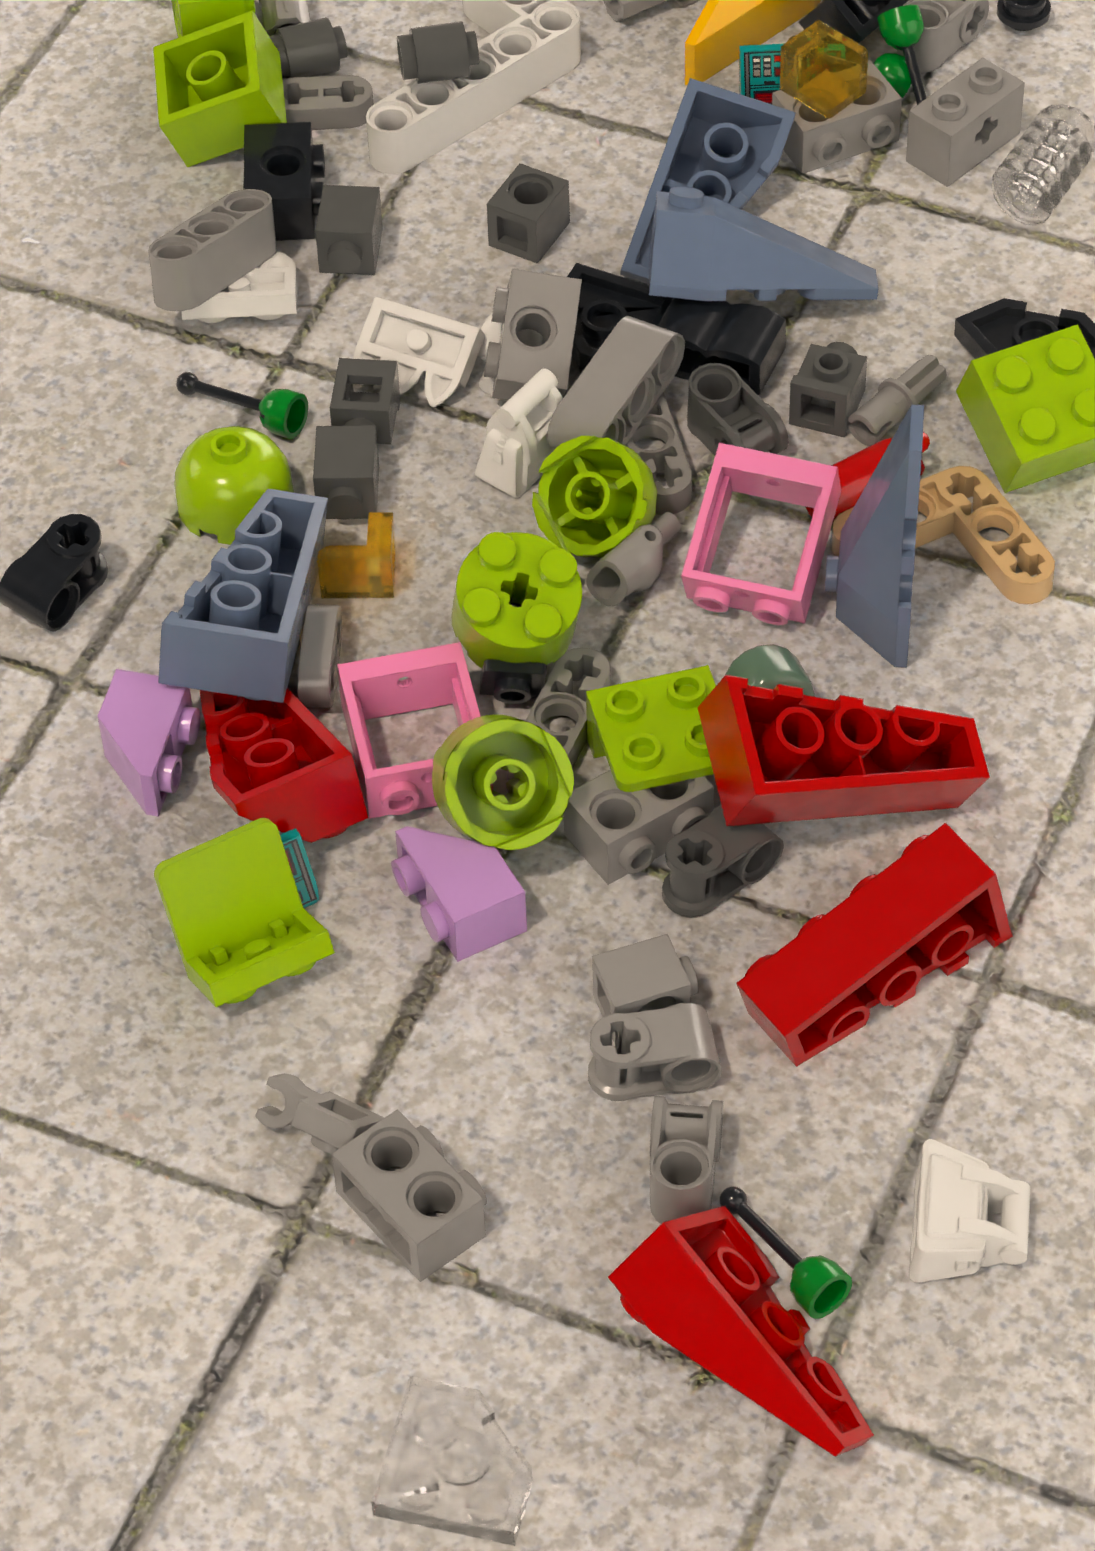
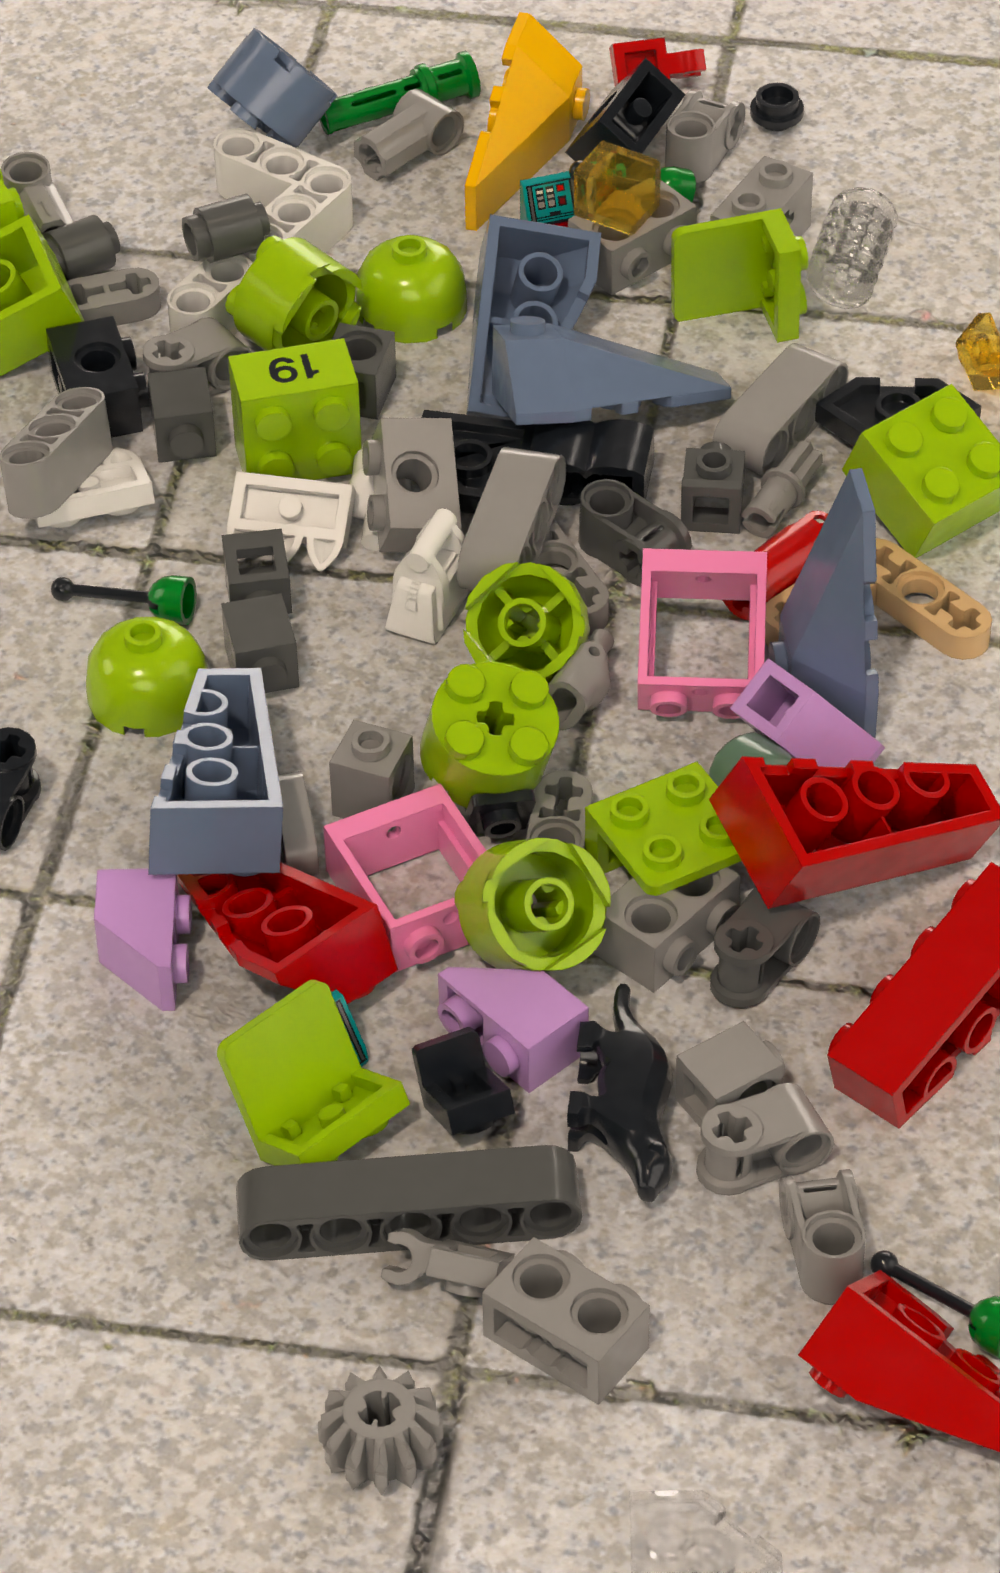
camera: 15 degrees left, 5 degrees down
(202, 1266) = (380, 1430): none -> light grey gear
(327, 1048) = (444, 1196): none -> dark grey beam
(361, 569) = (311, 735): clear yellow panel -> none
(388, 941) = (458, 1084): none -> black bracket
(389, 165) = (195, 346): none -> light grey piece
(405, 614) = (370, 769): none -> light grey brick
(447, 246) = (296, 410): none -> lime brick
(483, 133) = (293, 295): none -> lime brick
(543, 988) = (630, 1098): none -> black animal
(606, 138) = (412, 288): none -> lime cylinder
(830, 644) = (802, 720): none -> lavender slope
(902, 31) = (677, 142): green hinge -> none
(919, 316) = (780, 406): none -> light grey beam
(920, 168) = (738, 268): none -> lime bracket

